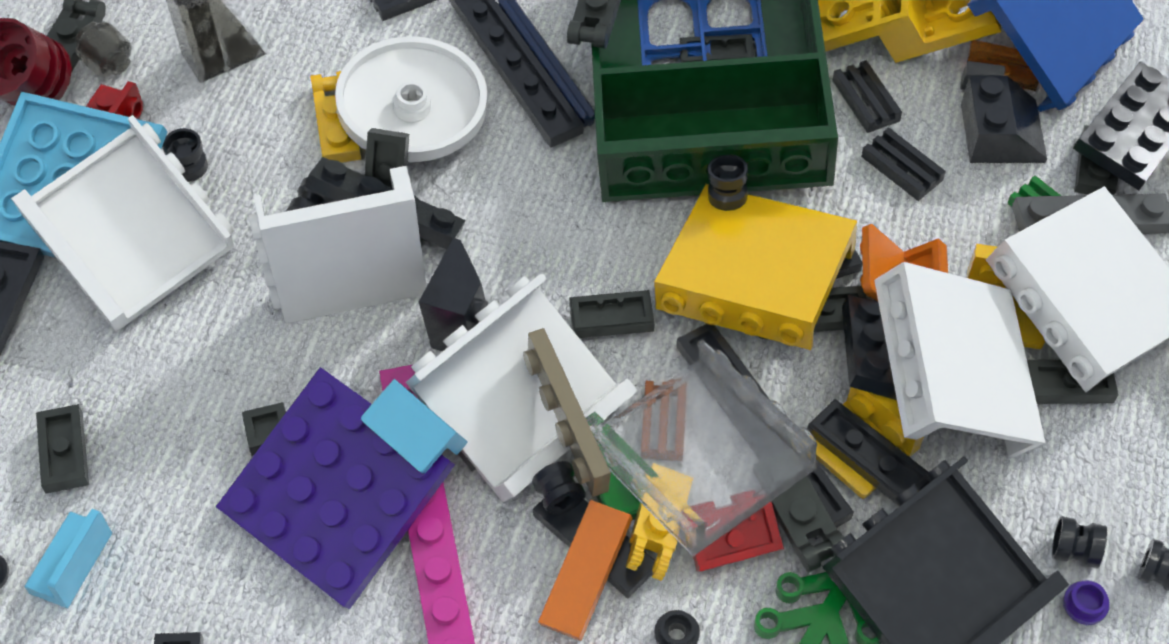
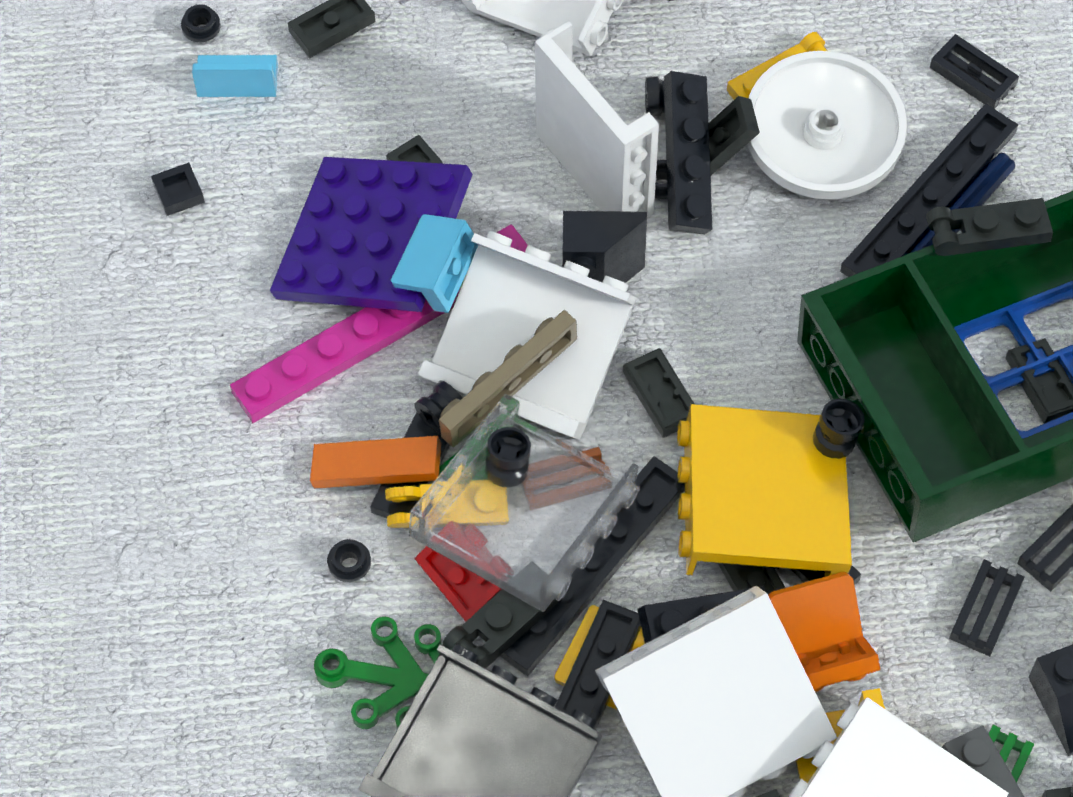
camera: 70 degrees right, 5 degrees up
(649, 437) = (508, 457): none -> black wheel

